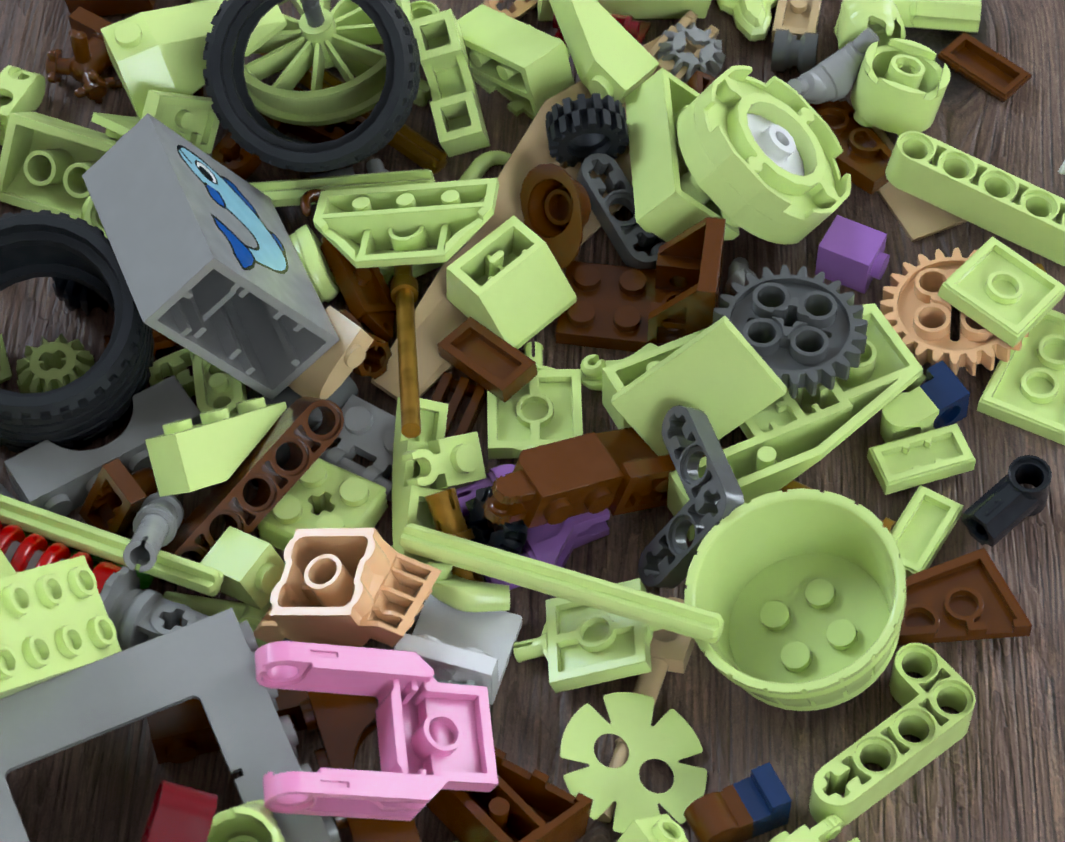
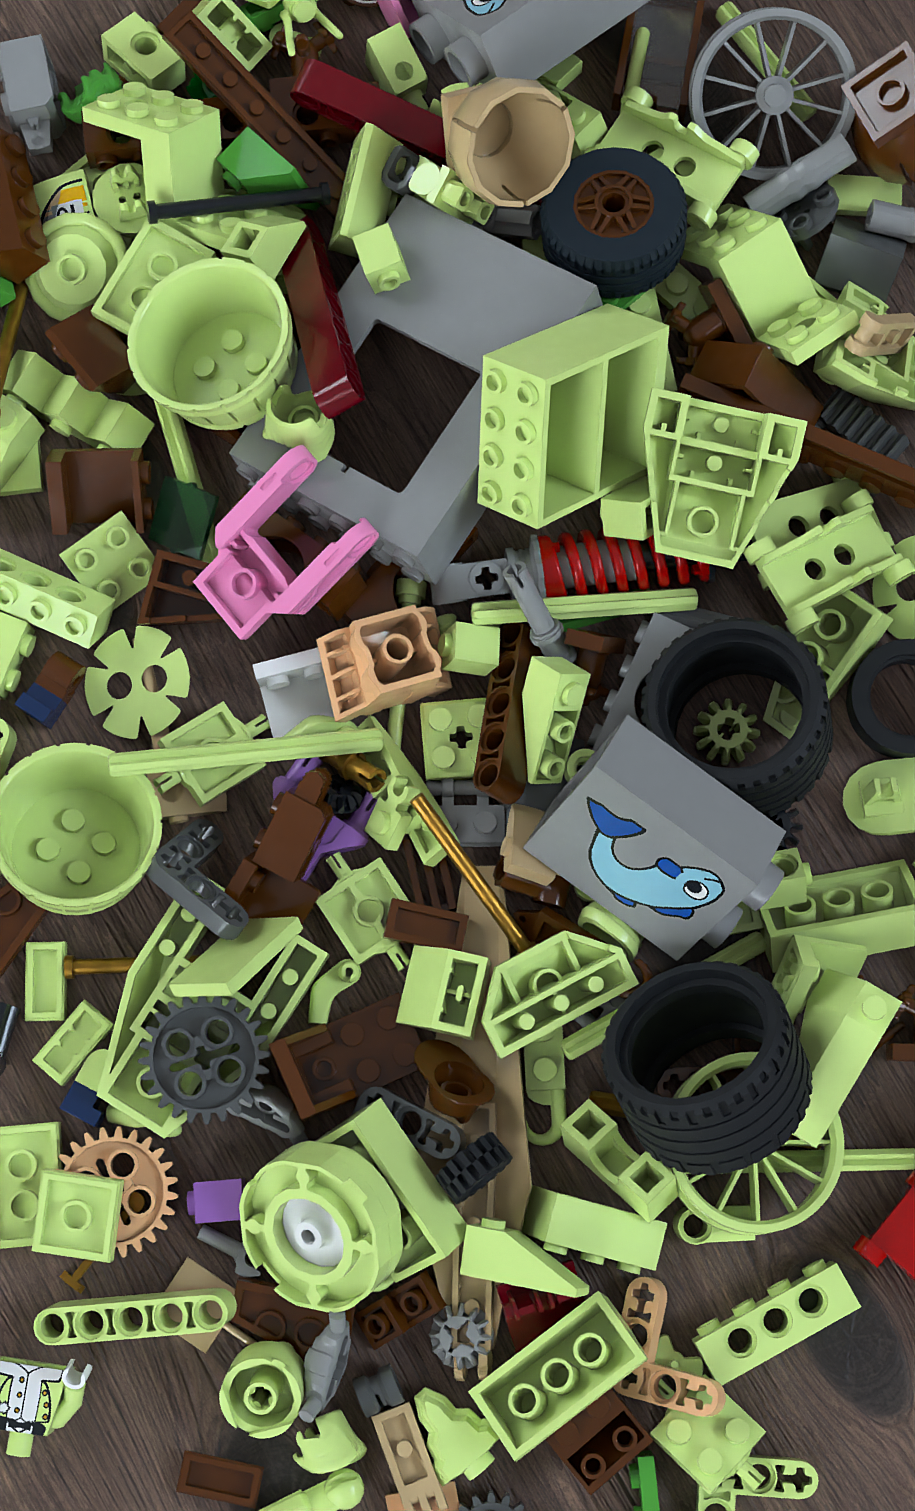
camera: 150 degrees right, 25 degrees up
(861, 205) = (231, 1247): none -> light grey bar

